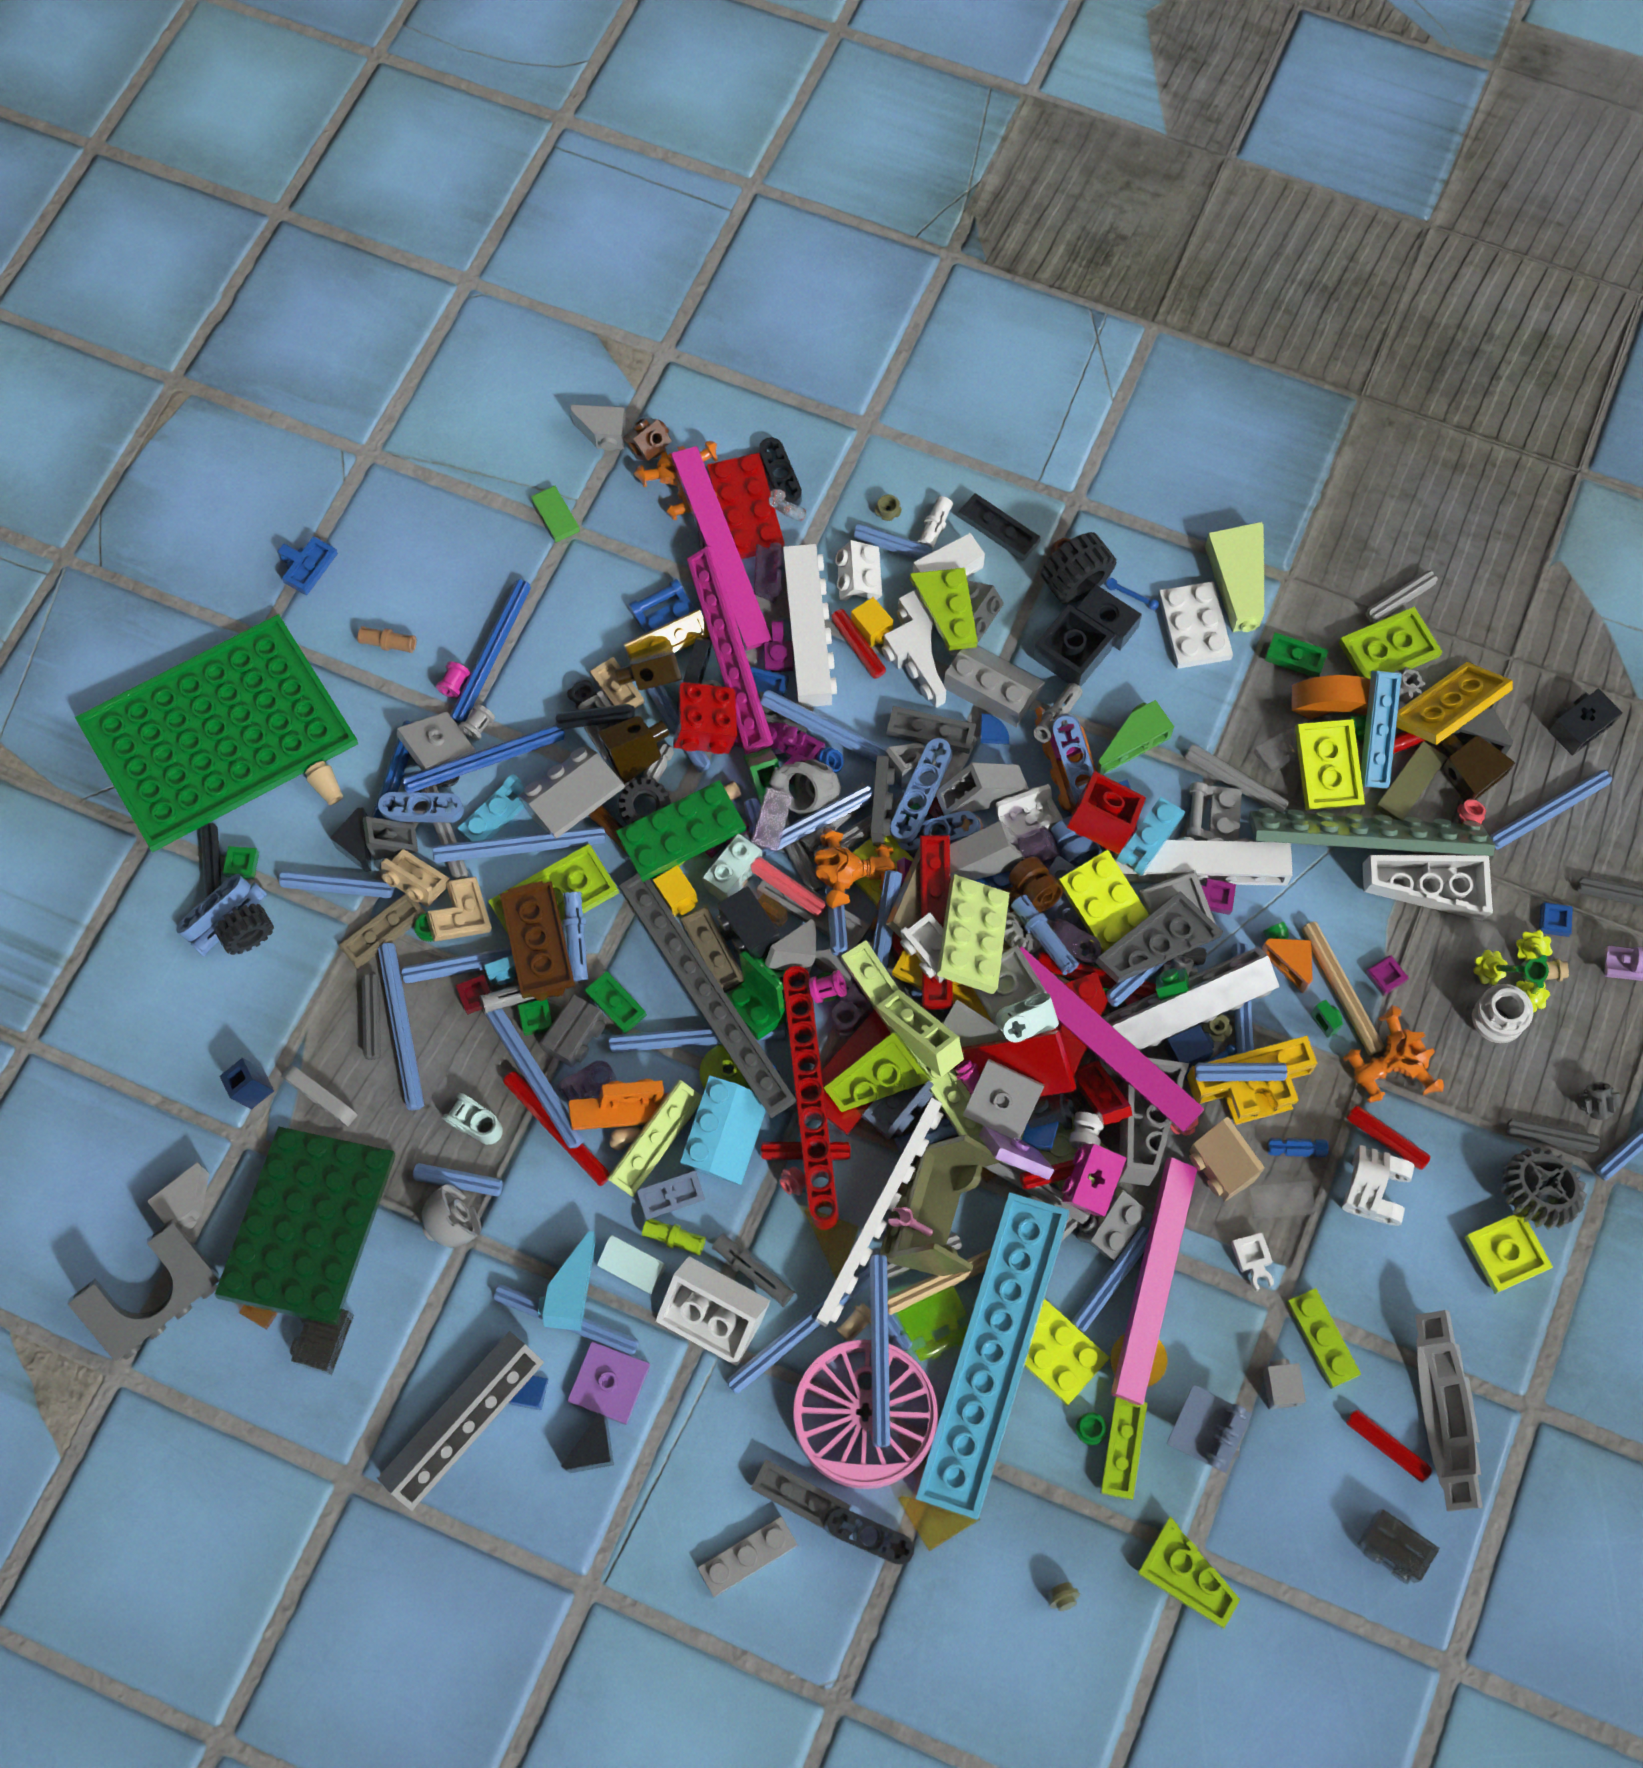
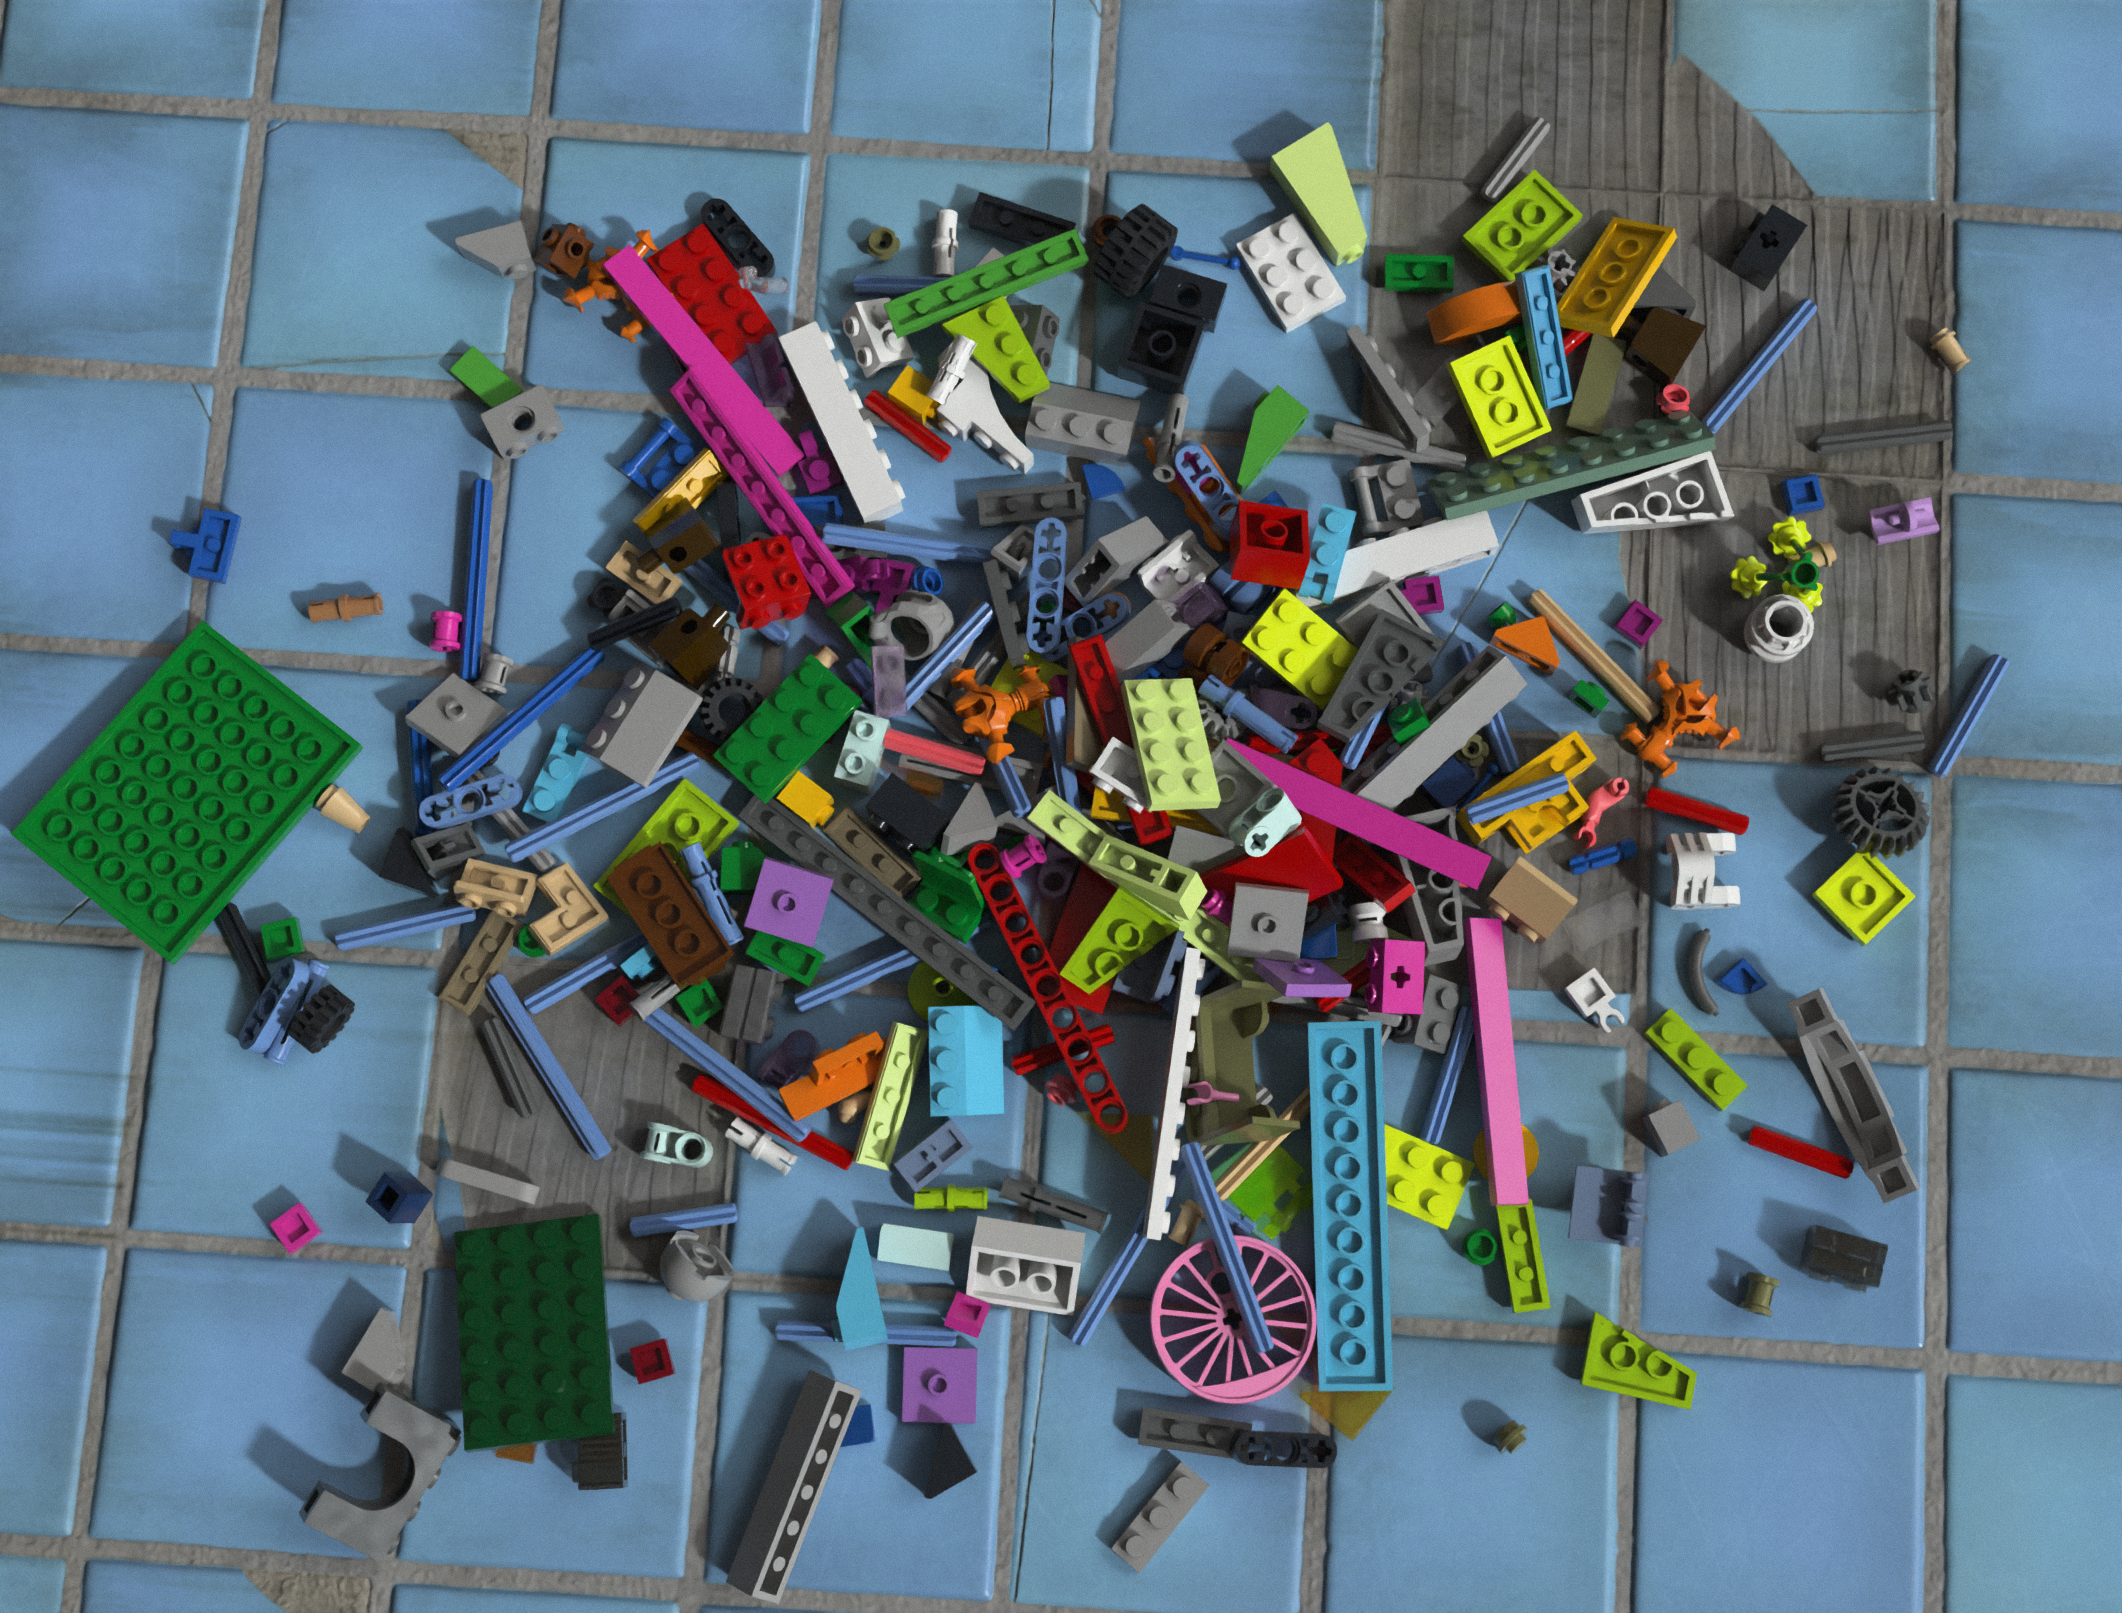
camera: 20 degrees left, 10 degrees up
(160, 1081) = (296, 1228): none -> dark pink plate
(389, 1281) = (652, 1361): none -> dark red plate
(540, 1143) = (761, 1146): none -> white pin
(558, 542) = (530, 405): none -> light grey brick
(612, 932) = (741, 868): none -> green slope
(632, 960) = (789, 902): none -> medium lavender plate
(651, 1333) = (967, 1314): none -> dark pink plate
(905, 607) = (951, 369): none -> white pin
(955, 554) = (986, 283): none -> bright green plate
(1240, 722) = (1382, 376): none -> light grey plate
(1308, 1103) = (1598, 801): none -> coral arm
(1315, 1552) = (1759, 1294): none -> olive bush
(1346, 1269) = (1695, 972): none -> dark grey piece
(1383, 1286) = (1741, 979): none -> blue tile

